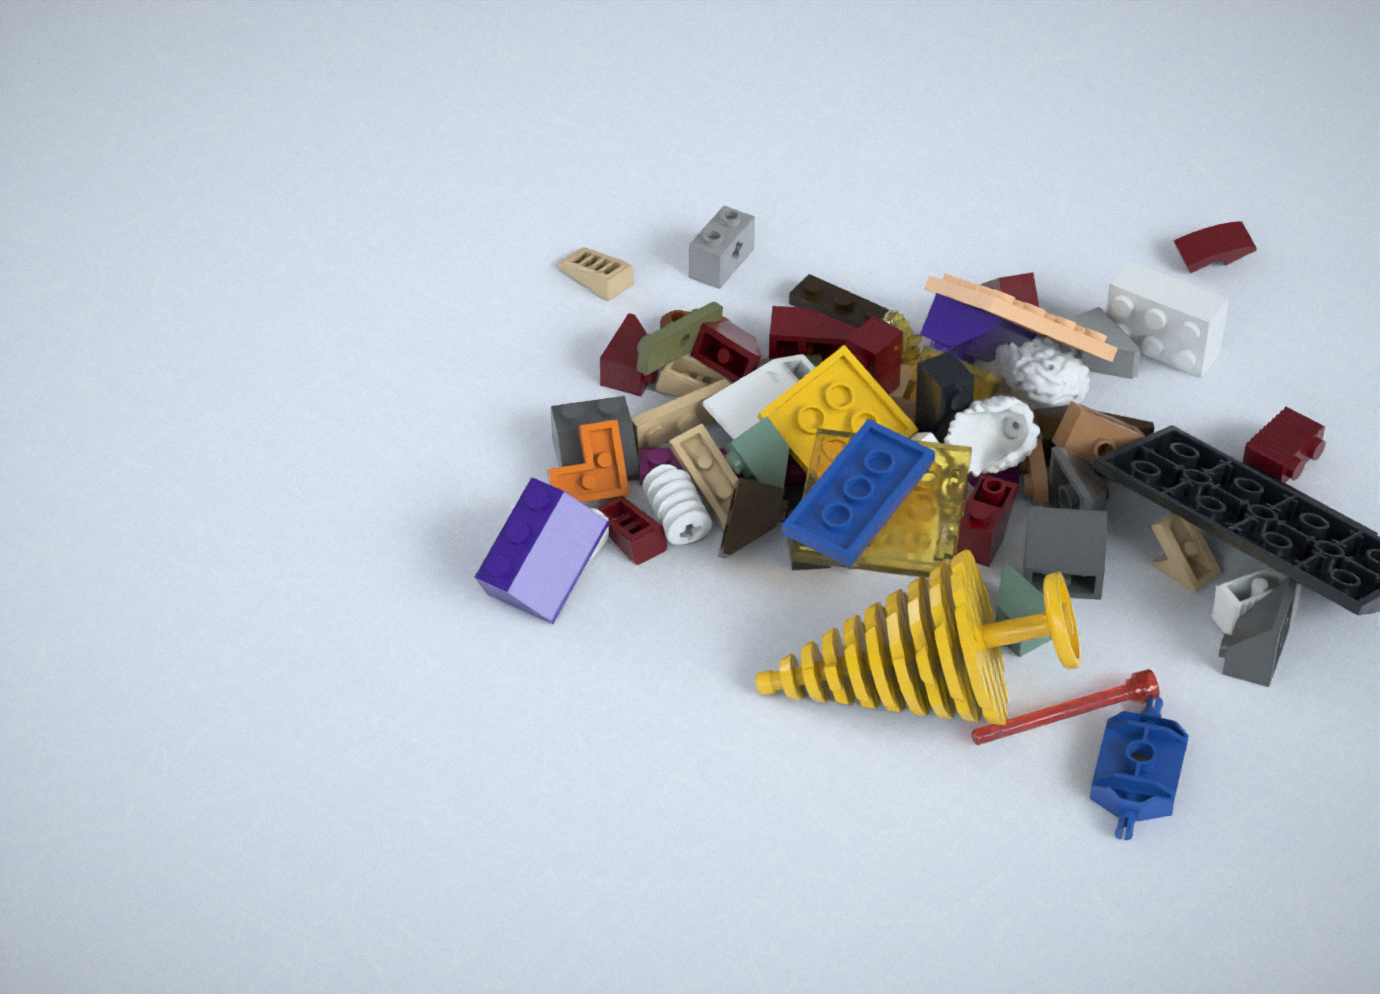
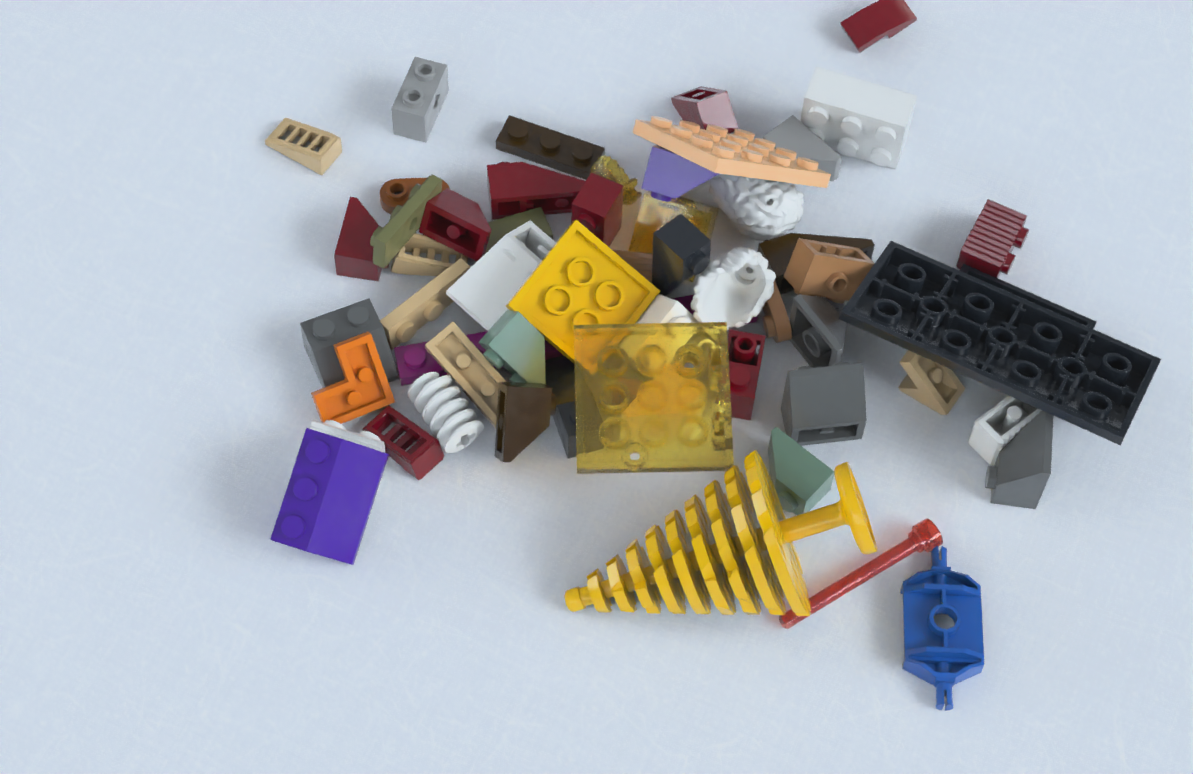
camera: 15 degrees left, 15 degrees up
(858, 493) = (631, 397): blue plate -> none

